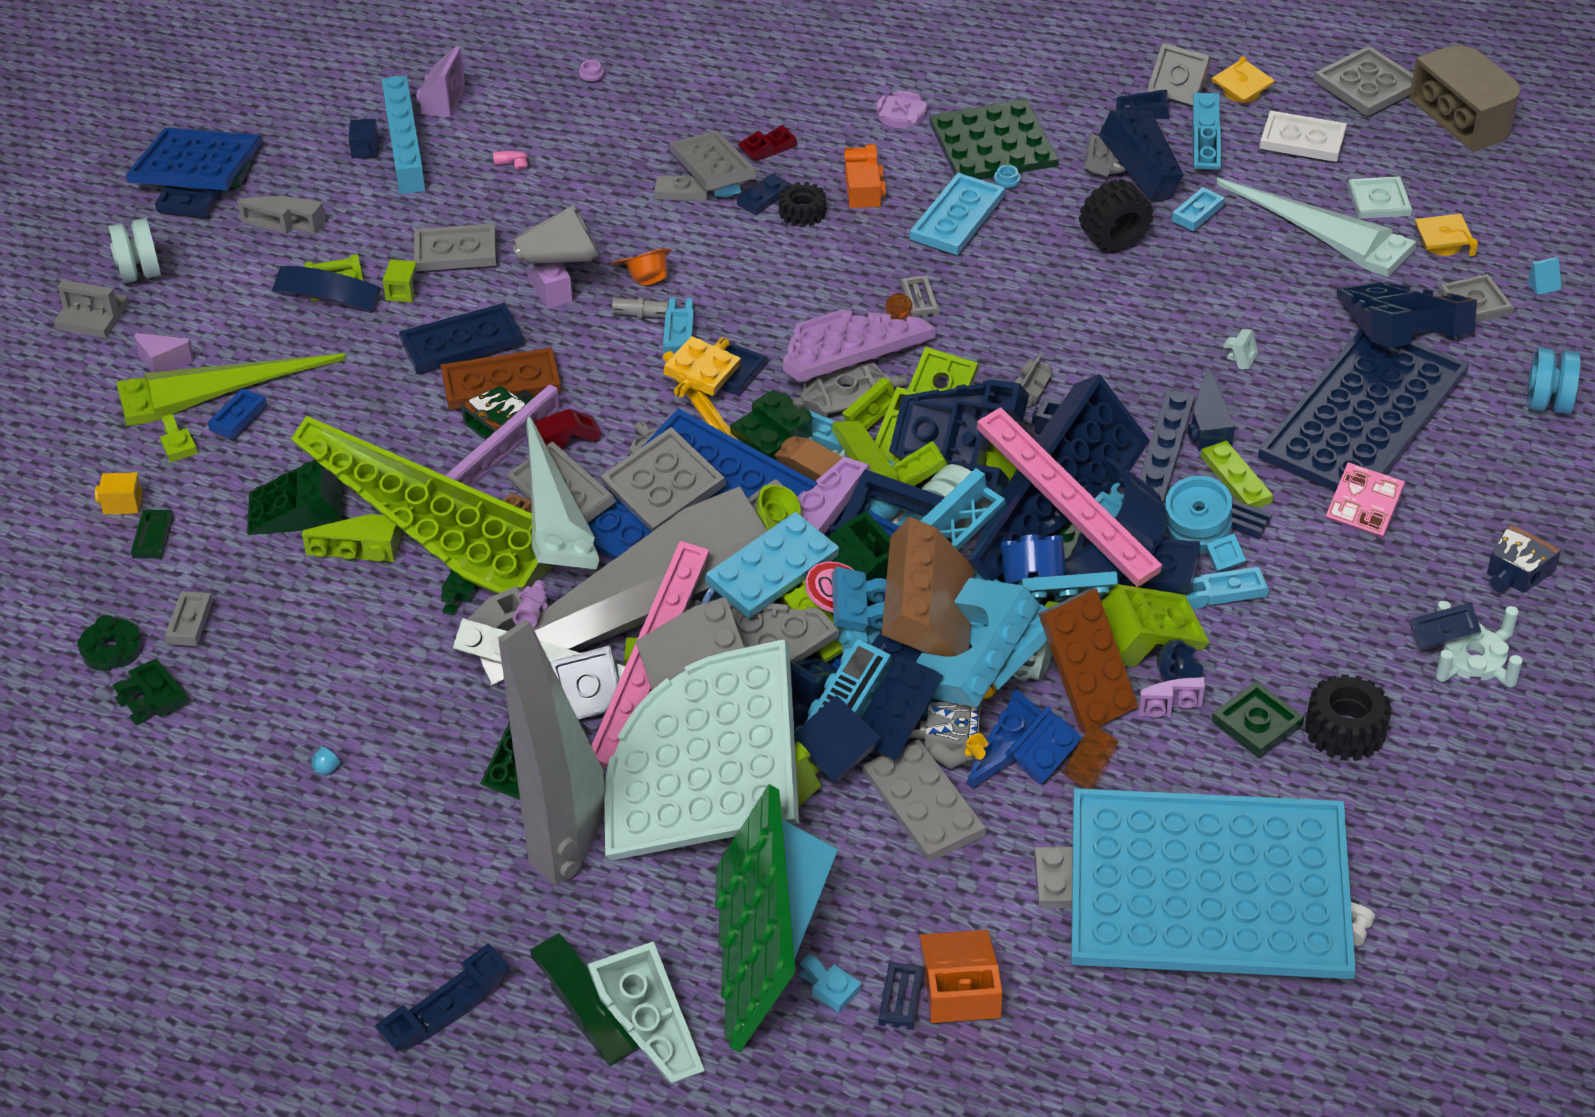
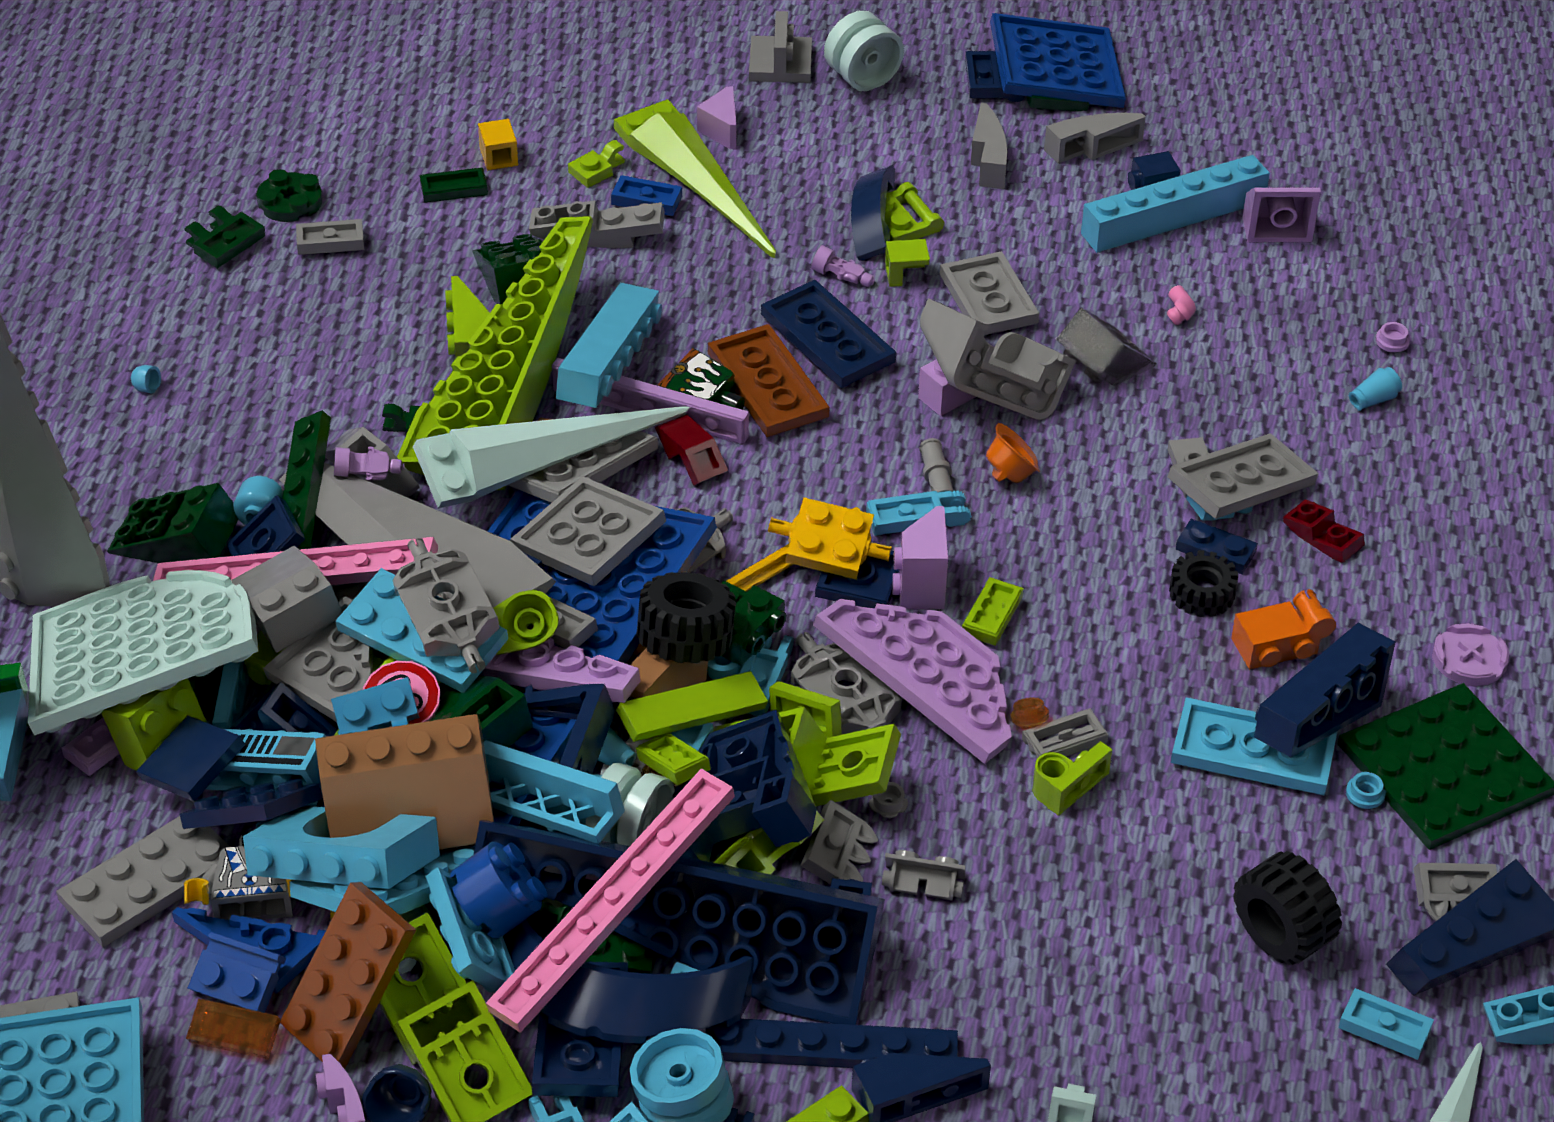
camera: 75 degrees right, 0 degrees up
(266, 445) = (610, 227): none -> light grey slope
(298, 160) = (1093, 135): none -> light grey slope
(375, 324) = (827, 261): none -> lavender piece
(447, 444) = (608, 345): none -> medium azure brick
(547, 199) = (1102, 349): none -> clear smoke slope
(641, 86) = (1377, 388): none -> medium azure cone
(747, 317) = (922, 563): none -> lavender slope
(747, 537) = (450, 625): none -> light grey plate
(792, 305) = (993, 610): none -> lime plate
(797, 426) = (686, 617): none -> black tyre
(940, 160) = (1328, 692): none -> dark blue wedge
(967, 300) = (1062, 782): none -> lime plate

